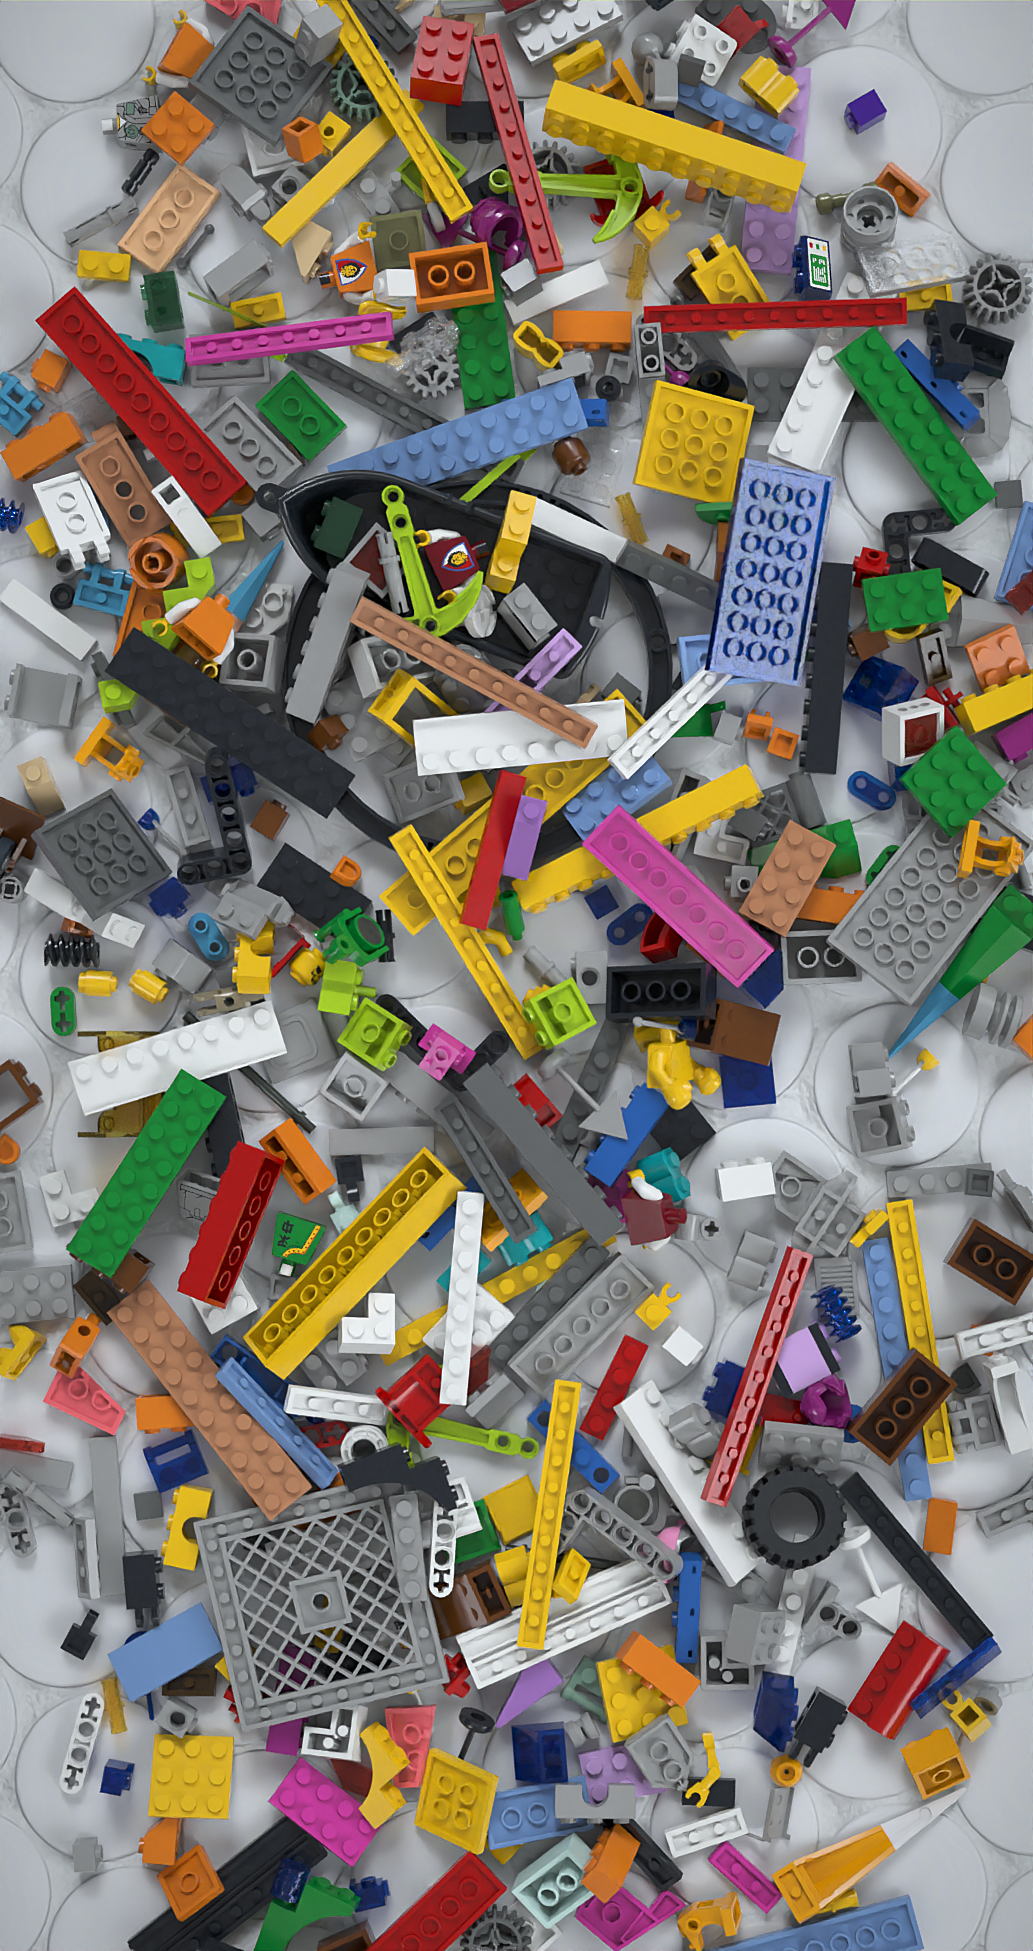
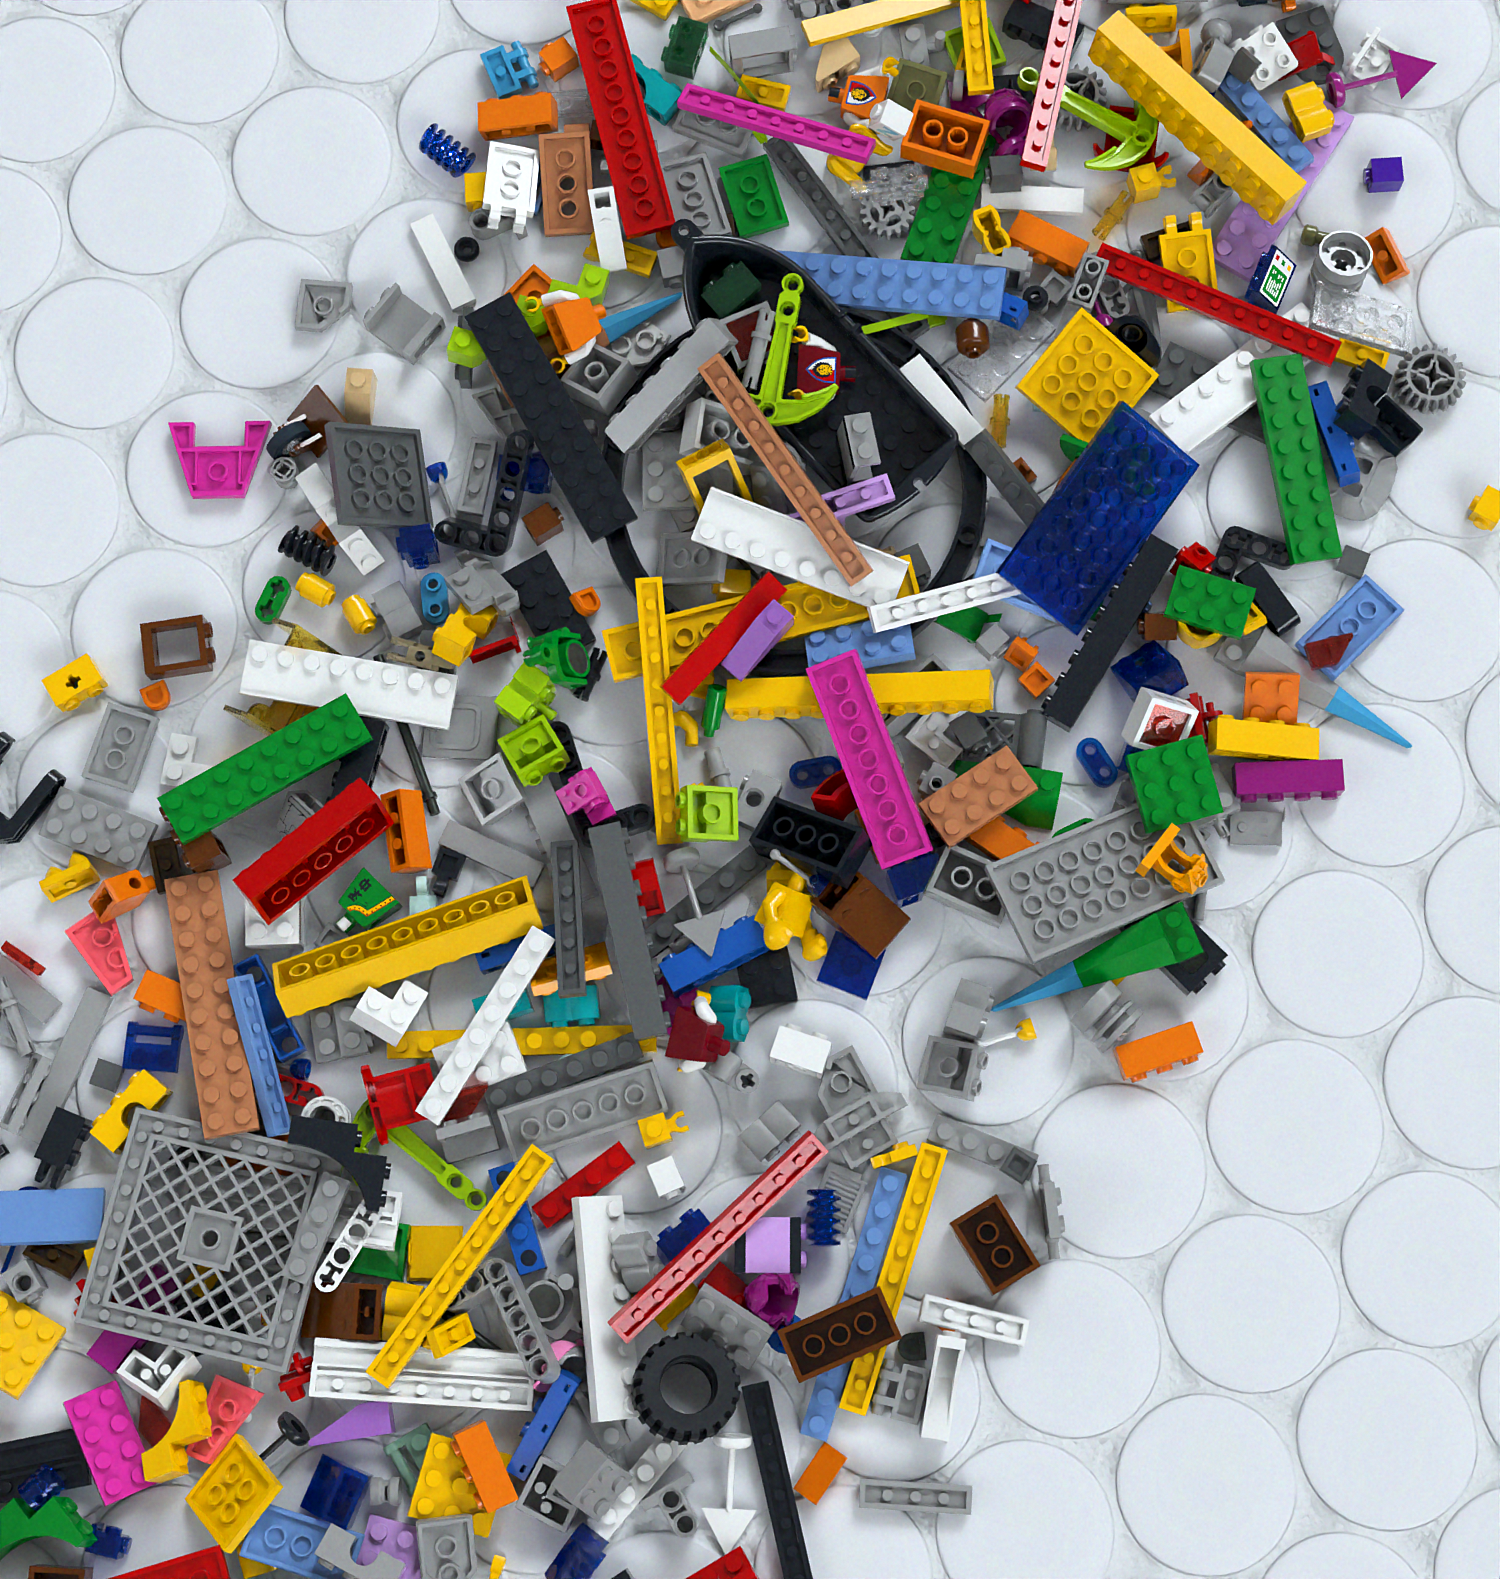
camera: 30 degrees right, 10 degrees down
(100, 744) = (429, 388): light orange tile -> none
(103, 597) = (498, 264): dark azure plate -> none
(157, 560) = (562, 254): orange brick -> none
(307, 966) = (505, 664): yellow head -> none
(328, 733) = (632, 469): reddish brown plate -> none
(335, 1405) = (321, 1067): white plate -> none
(482, 618) = (818, 429): white tile -> none
(510, 542) = (878, 375): yellow arch -> none
(601, 902) = (800, 741): clear blue plate -> none
(933, 657) = (1213, 669): dark brown plate -> none

